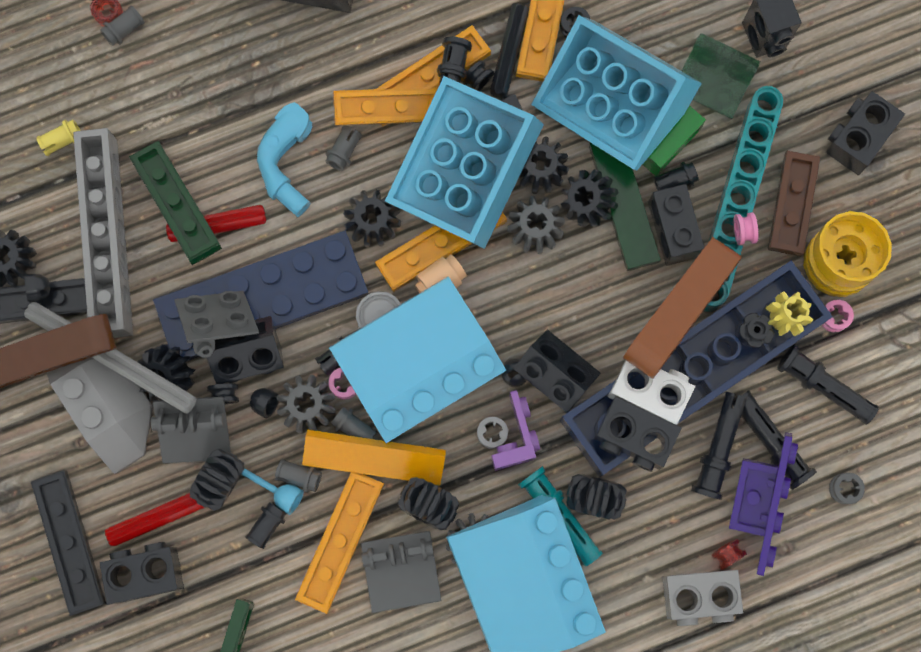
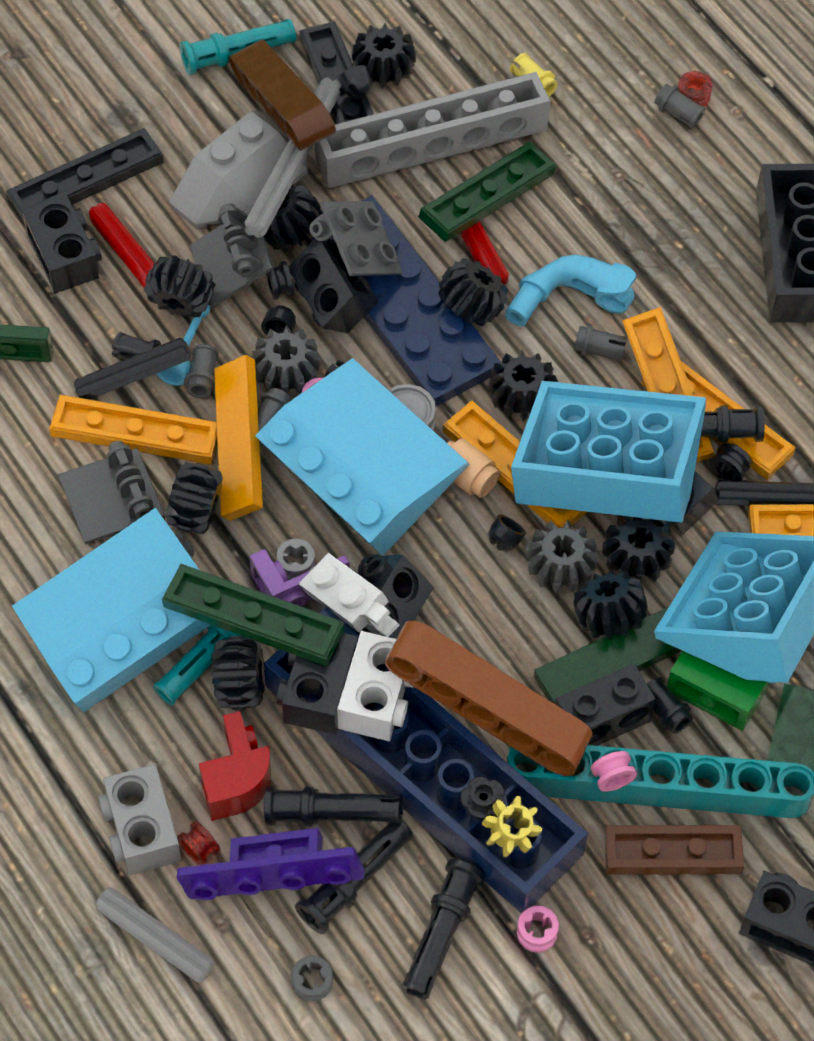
camera: 75 degrees right, 20 degrees down
(278, 237) = (473, 292): none -> black gear
(290, 534) = (132, 369): none -> black axle
(503, 262) = (505, 533): none -> black hinge
(560, 396) = (348, 596): none -> white plate
(582, 475) = (253, 614): none -> dark green tile
(682, 512) = (237, 780): none -> red brick
(793, 600) = (154, 934): none -> light grey axle
(857, 240) = (627, 889): yellow wheel -> none

